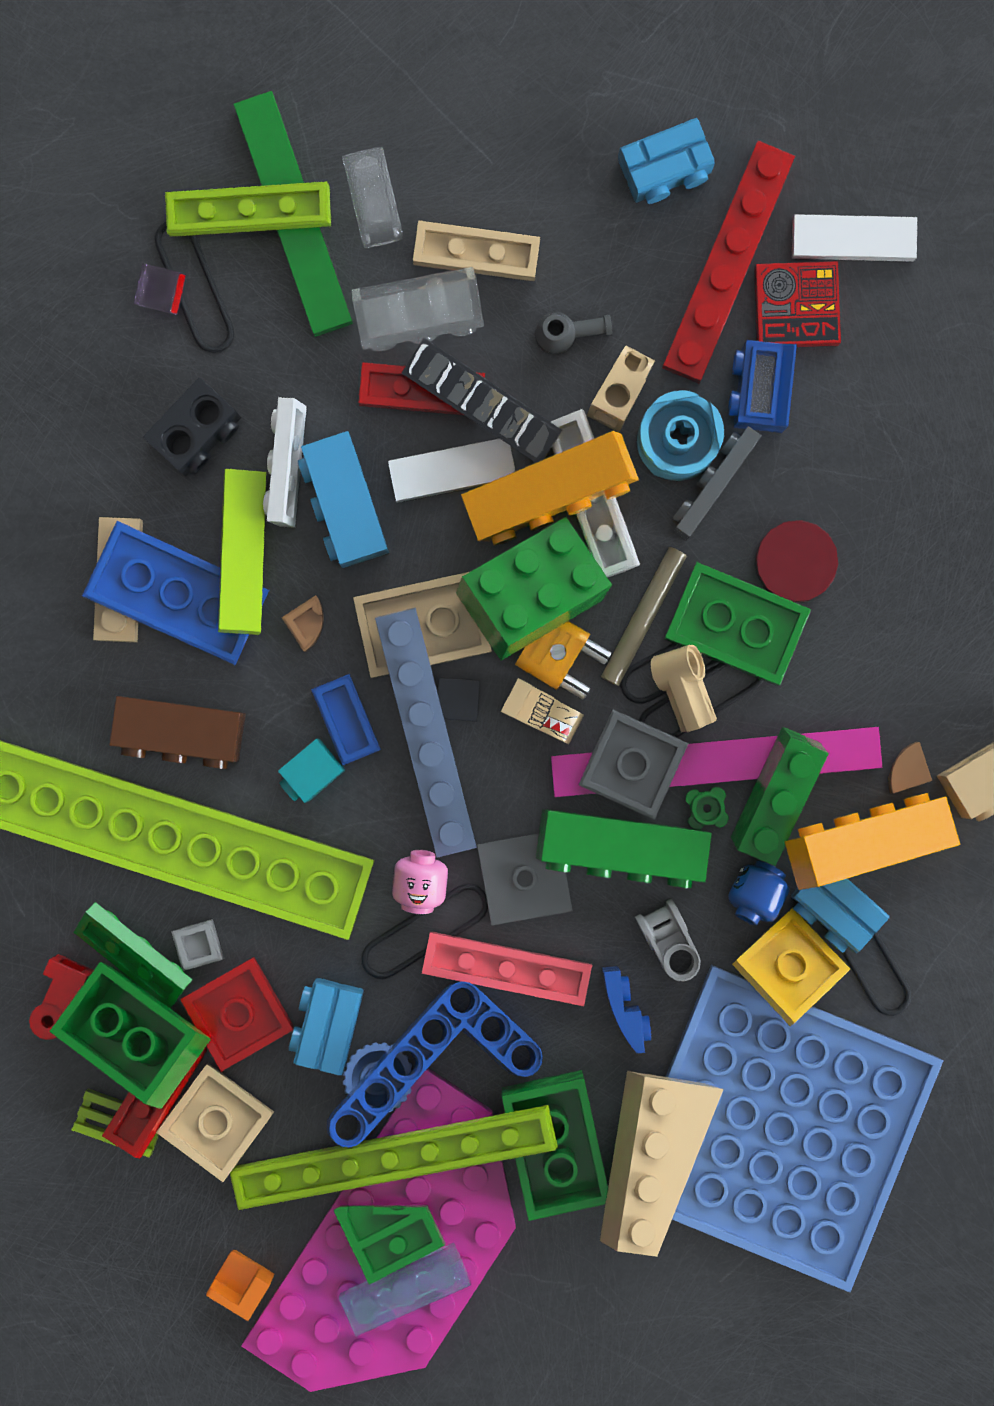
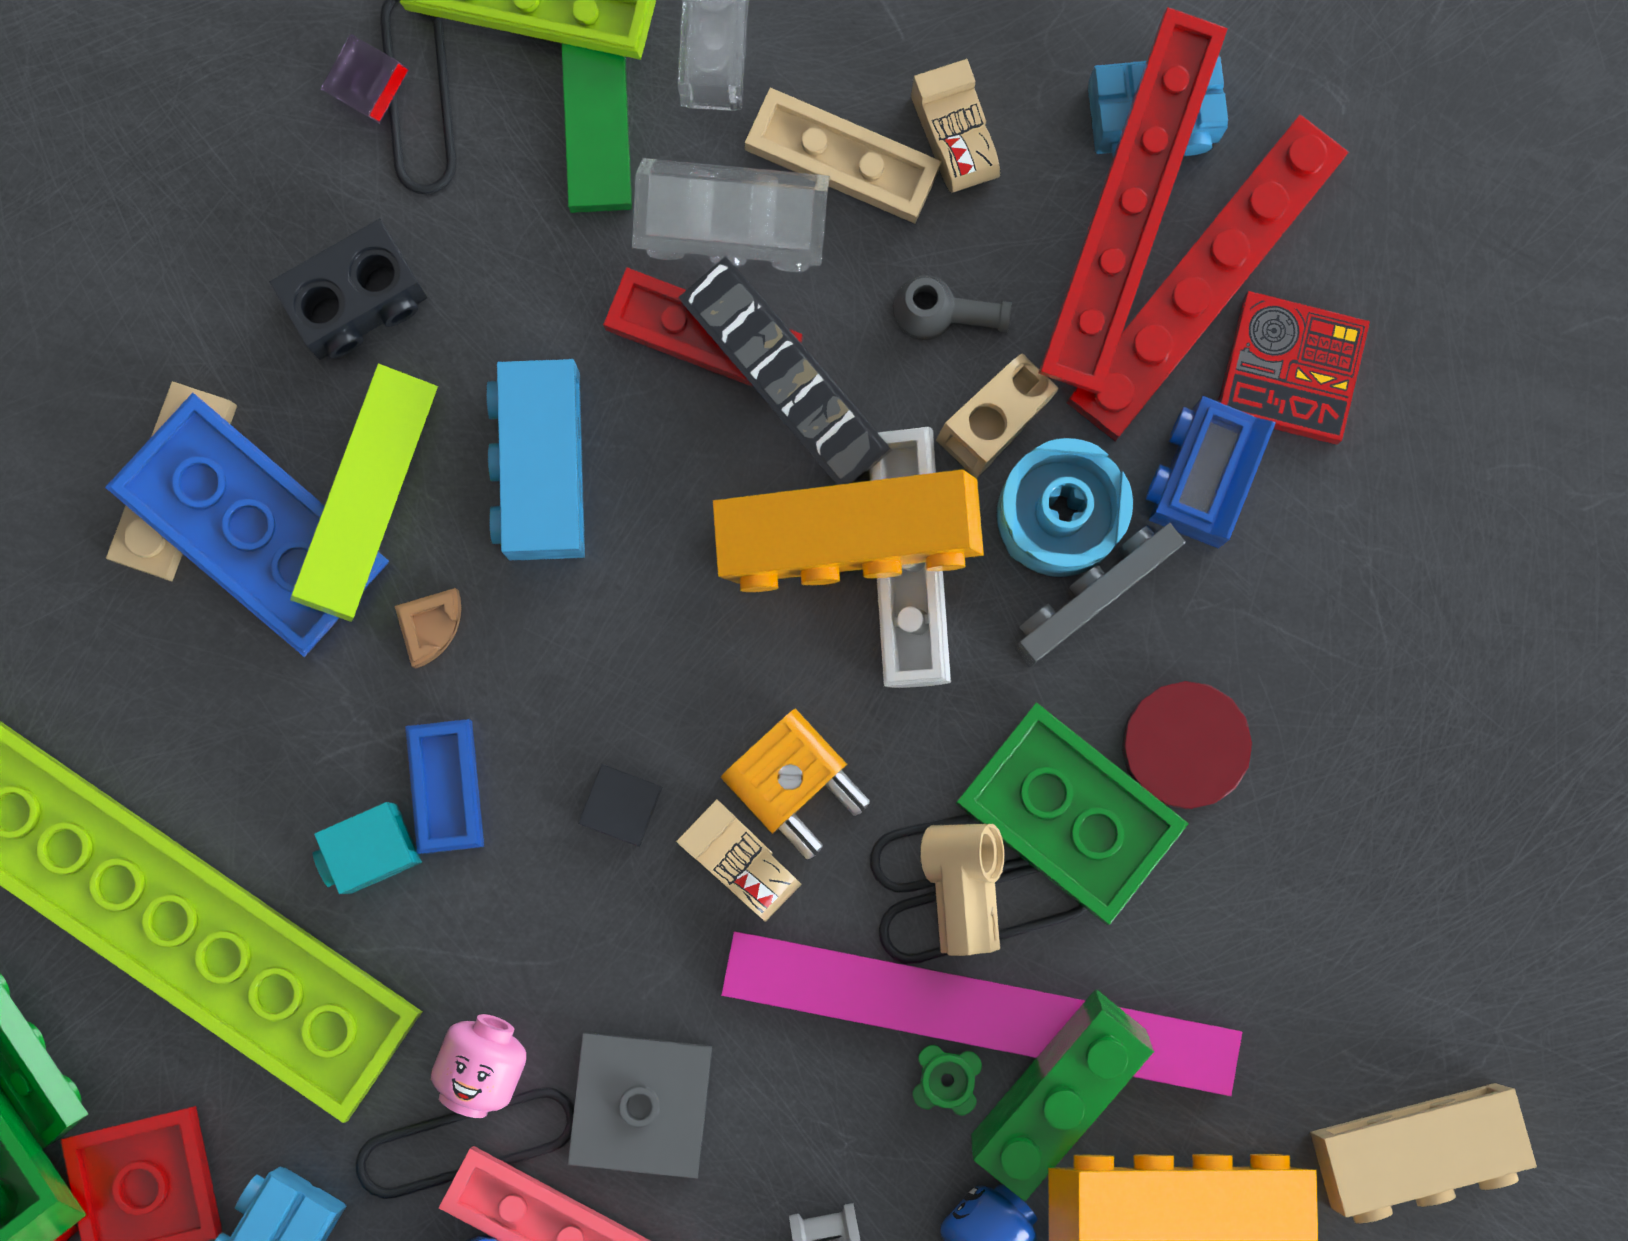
camera: 15 degrees right, 5 degrees down
(177, 731) = (185, 731): reddish brown brick -> none
(197, 945) = (116, 1062): light grey tile -> none
(282, 462) = (489, 335): white plate -> none
(426, 732) = (556, 841): sand blue plate -> none
(444, 621) = (599, 677): tan plate -> none
(450, 469) = (709, 460): white tile -> none
(533, 588) = (778, 670): green brick -> none
(542, 211) = (955, 125): none -> tan leg
(623, 846) = (802, 1103): green brick -> none
(633, 764) = (853, 980): dark grey plate -> none
(643, 616) = (934, 761): dark tan piece -> none
(669, 228) = (1133, 200): none -> red plate
(854, 237) = (1403, 294): white tile -> none
(909, 769) = (1271, 1110): medium nougat tile -> none

